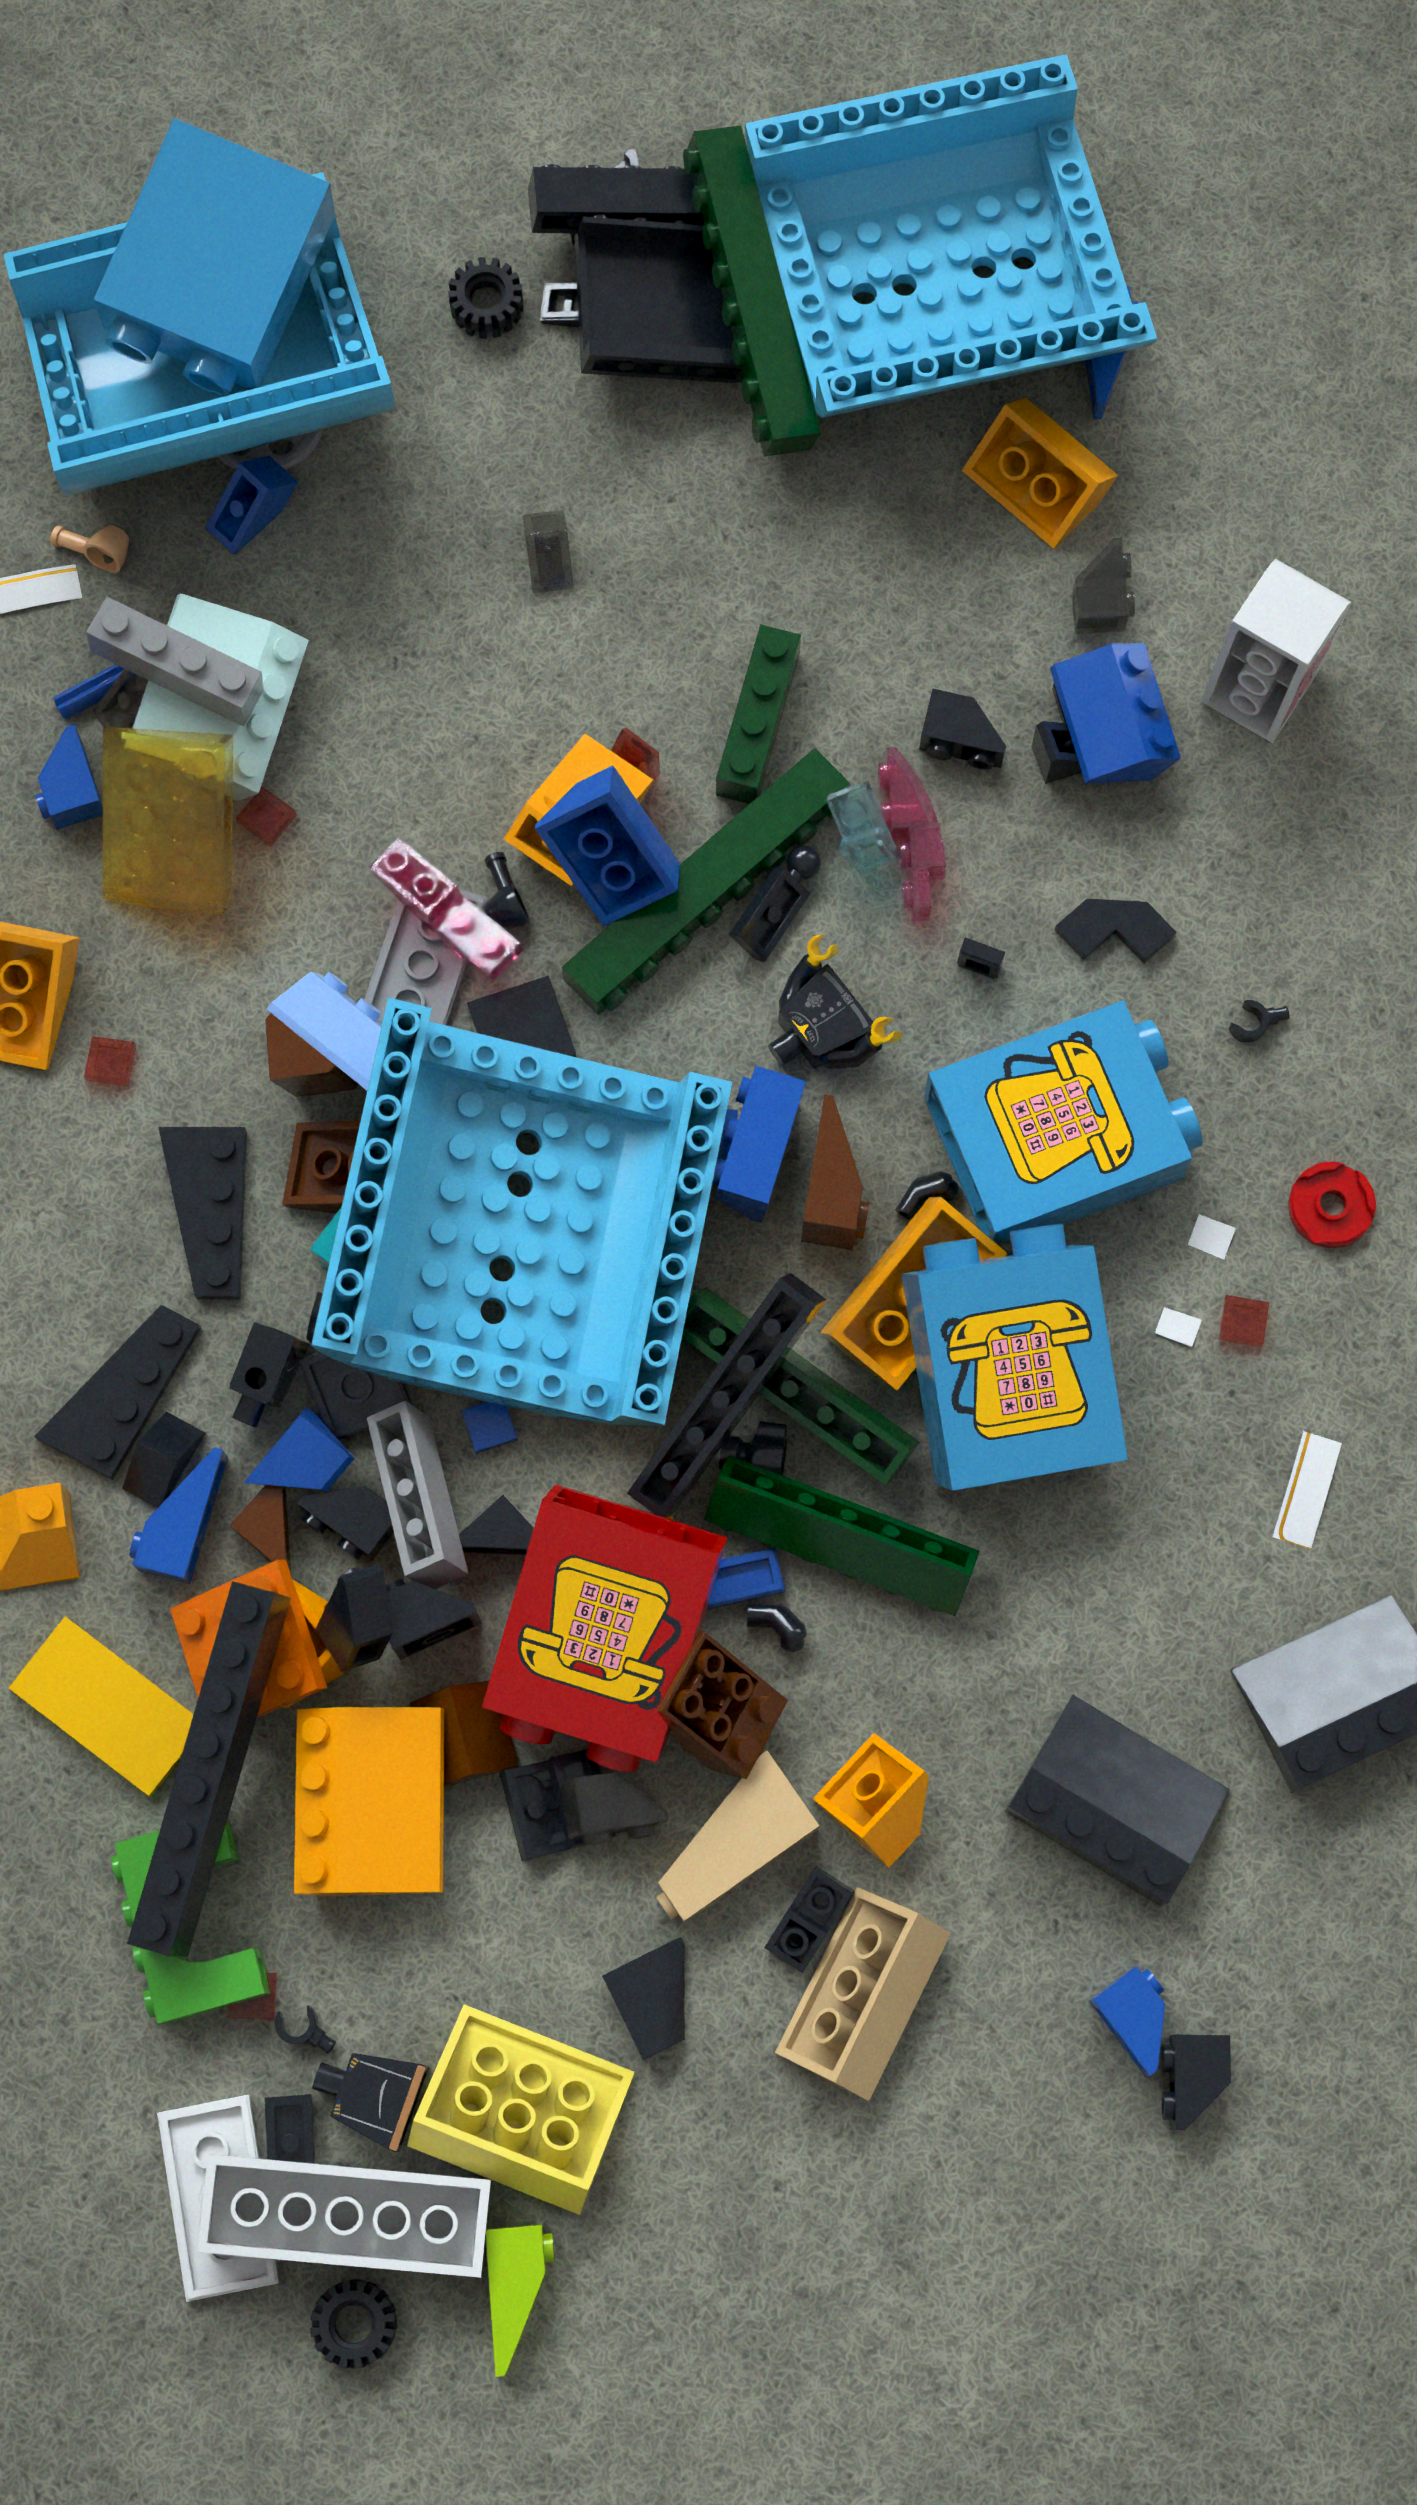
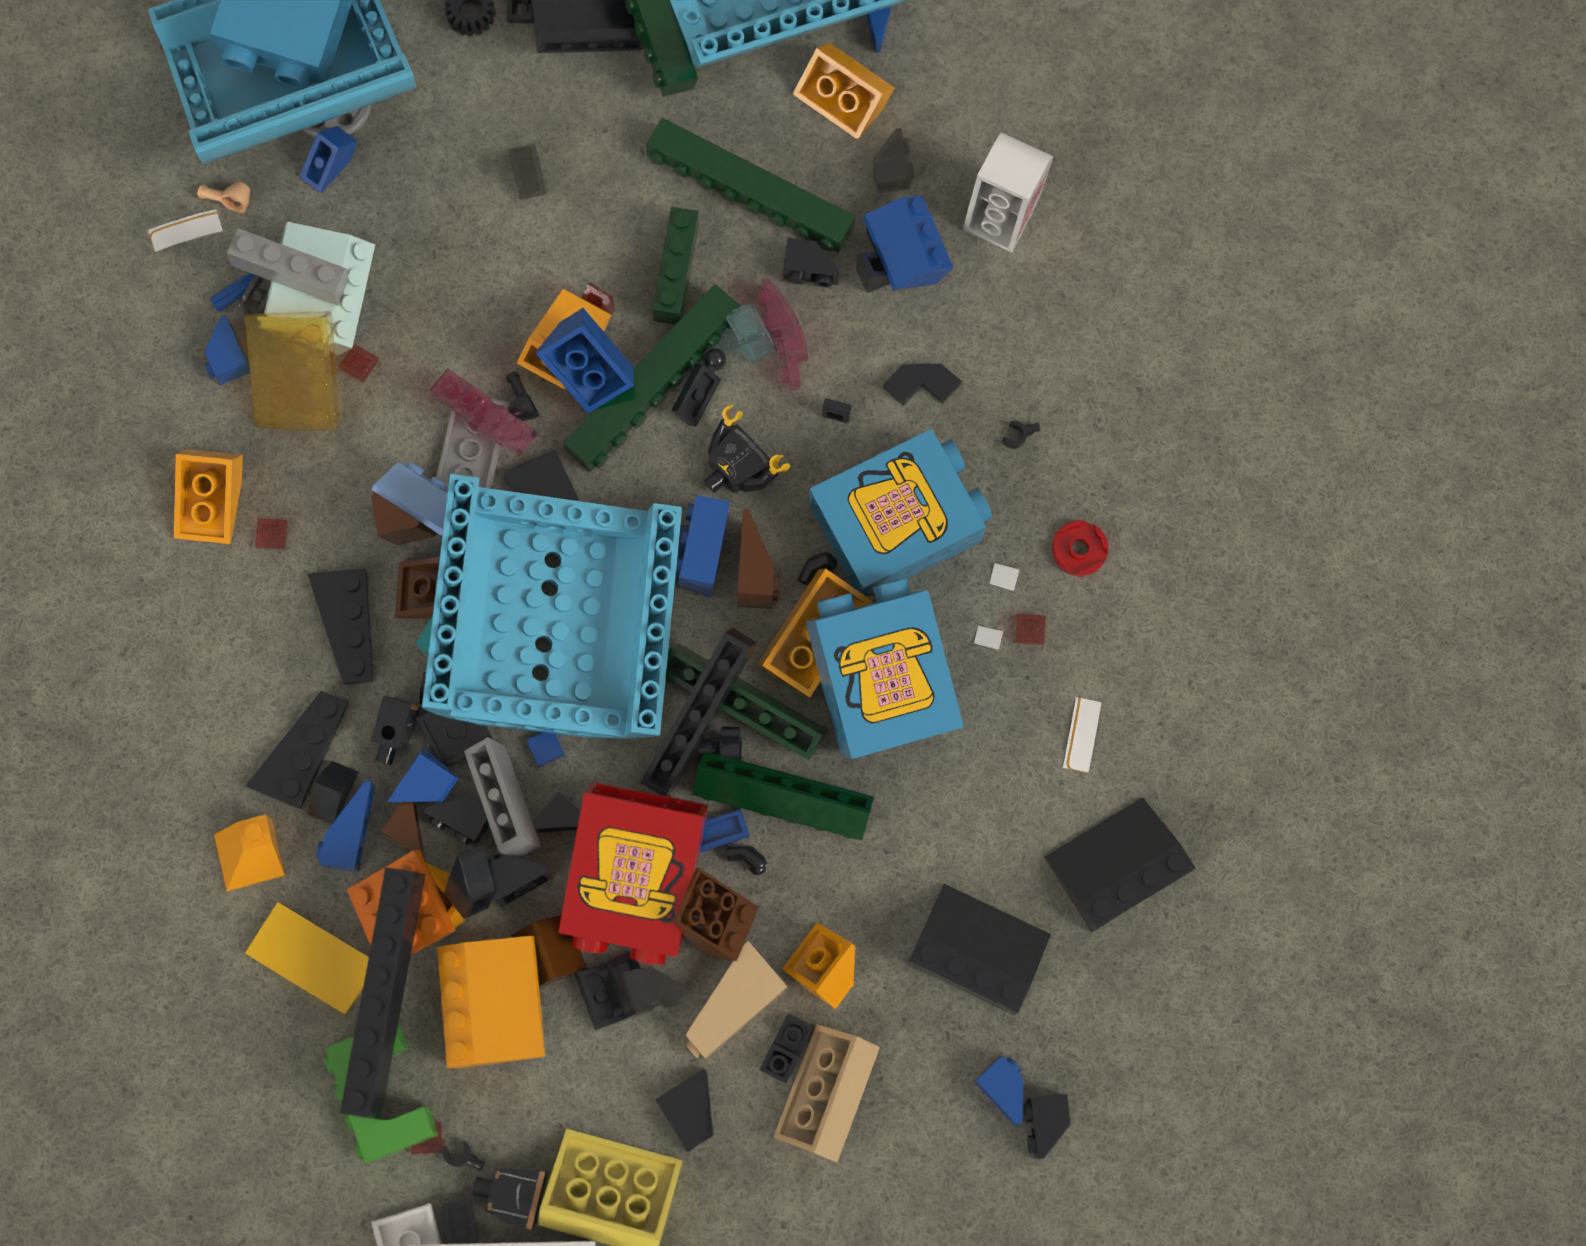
camera: 10 degrees left, 0 degrees up
(883, 603) = (750, 185): none -> dark green brick

